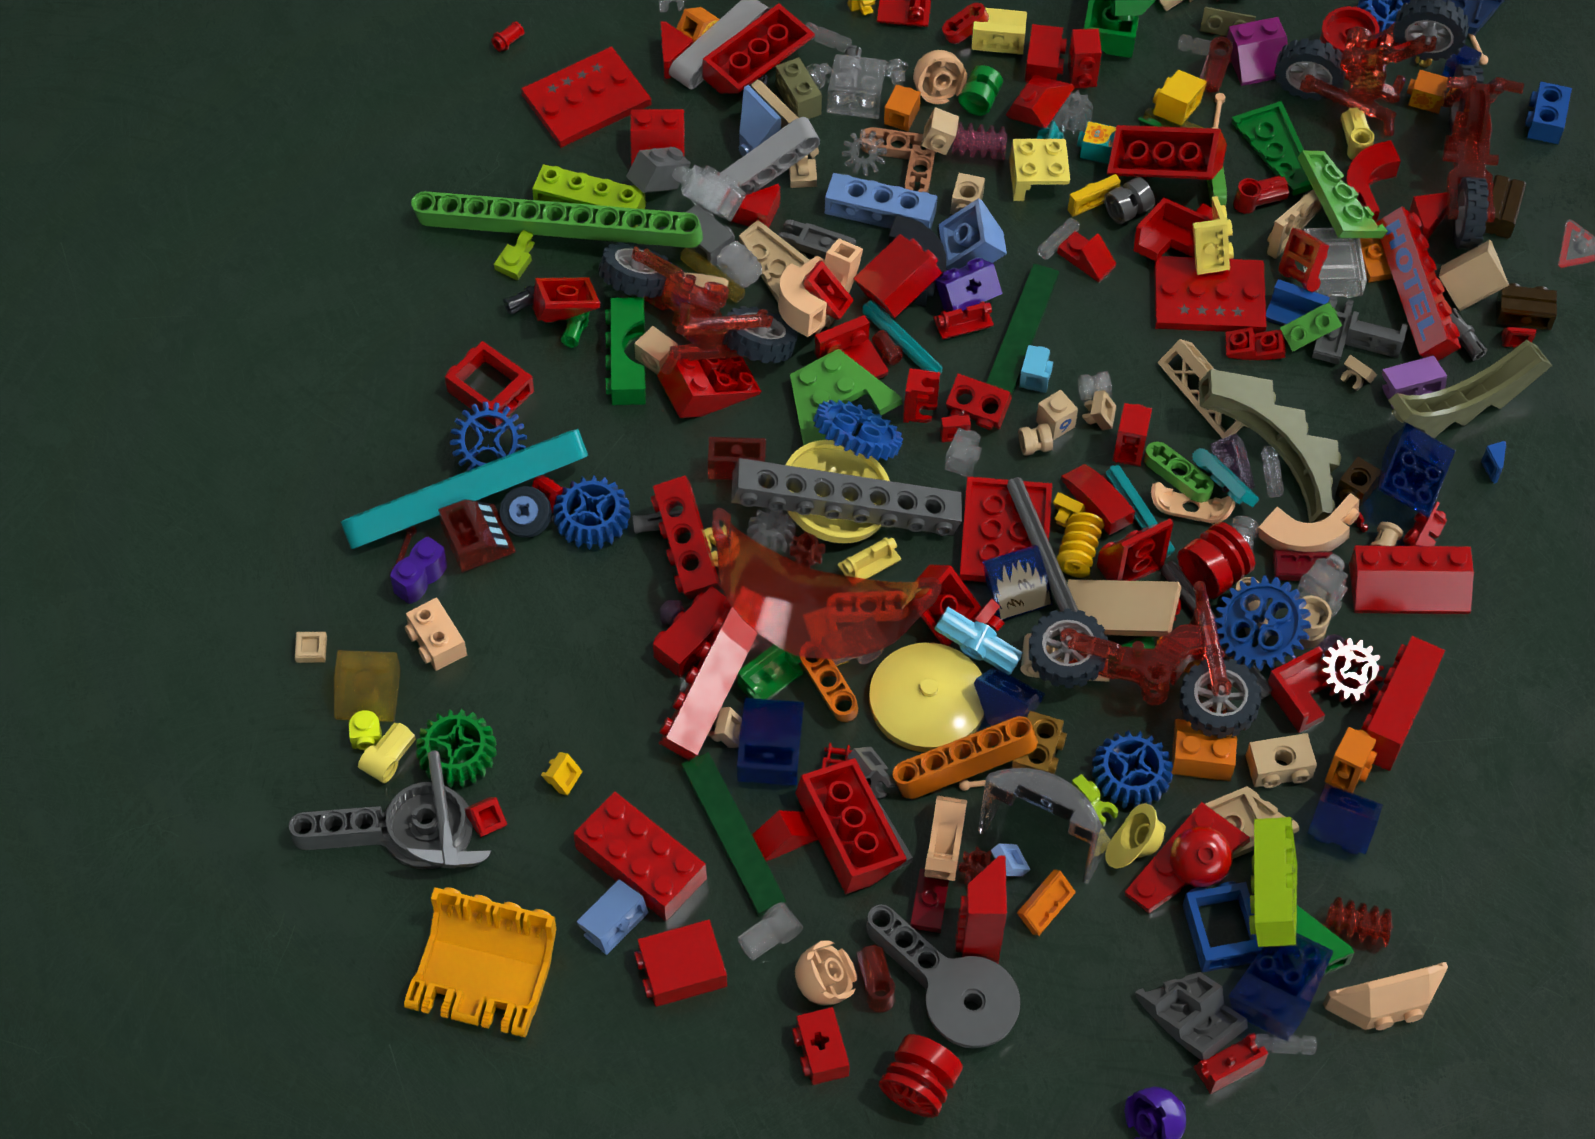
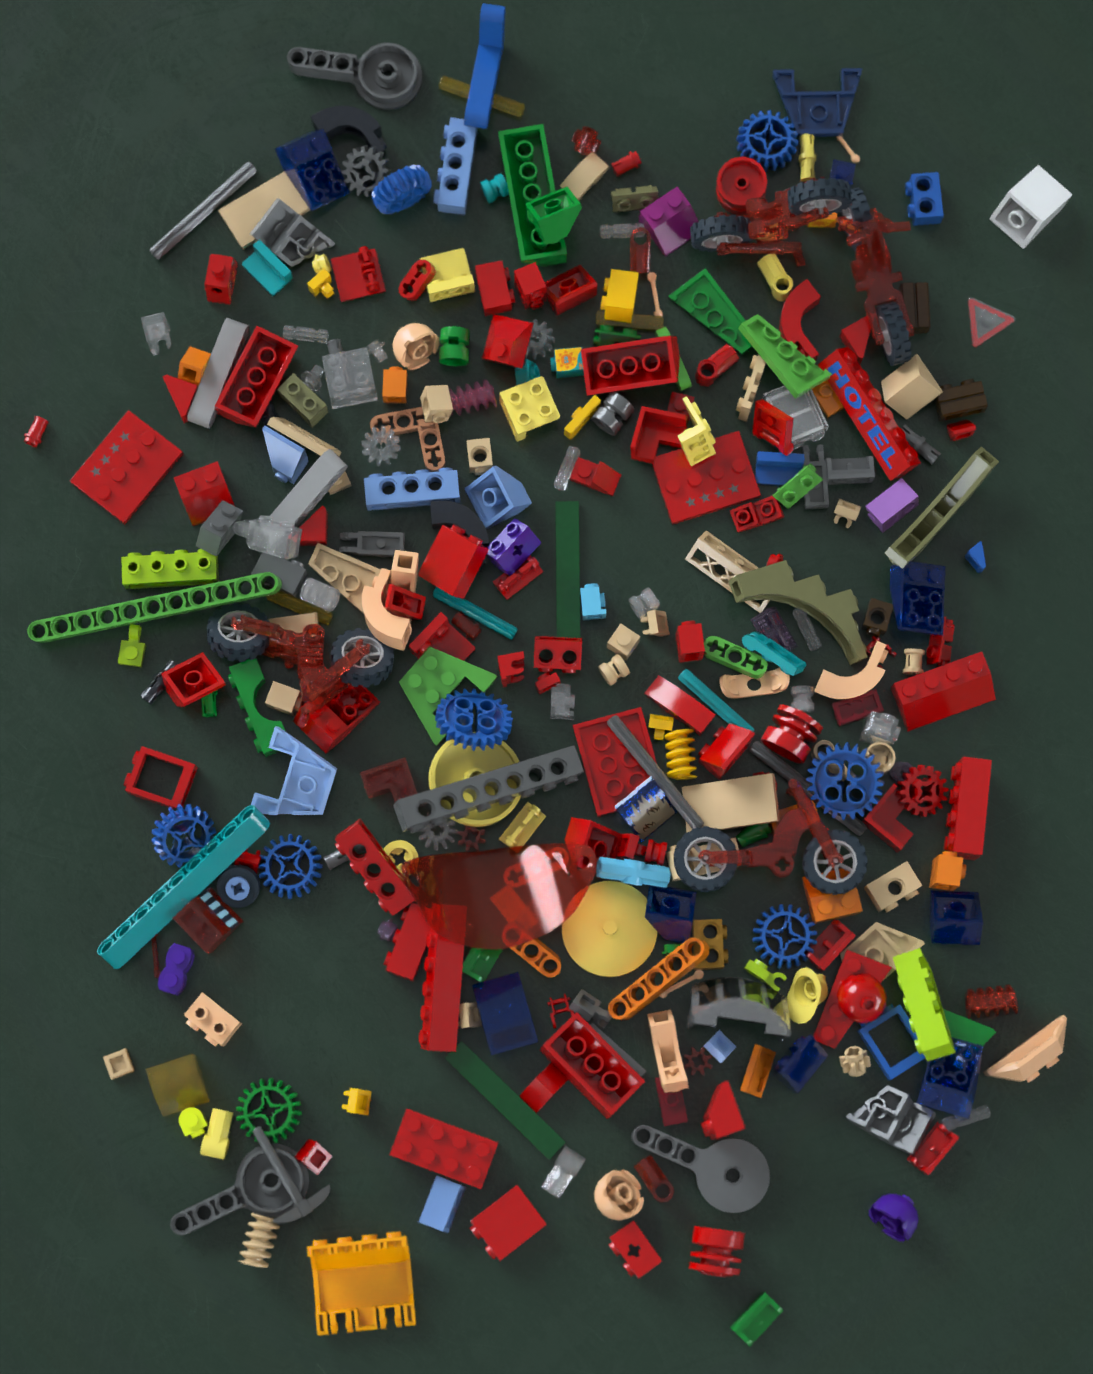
camera: 20 degrees left, 20 degrees up
(382, 877) = (259, 1241): none -> tan piece
(644, 436) = (306, 781): none -> light blue wing
(1013, 632) = (655, 852): none -> red wheel
(1101, 900) = (801, 1063): none -> clear blue slope
(1127, 83) = (570, 289): none -> red slope
(1168, 930) = (855, 1061): none -> tan gear
(1182, 798) = (829, 945): none -> red hinge

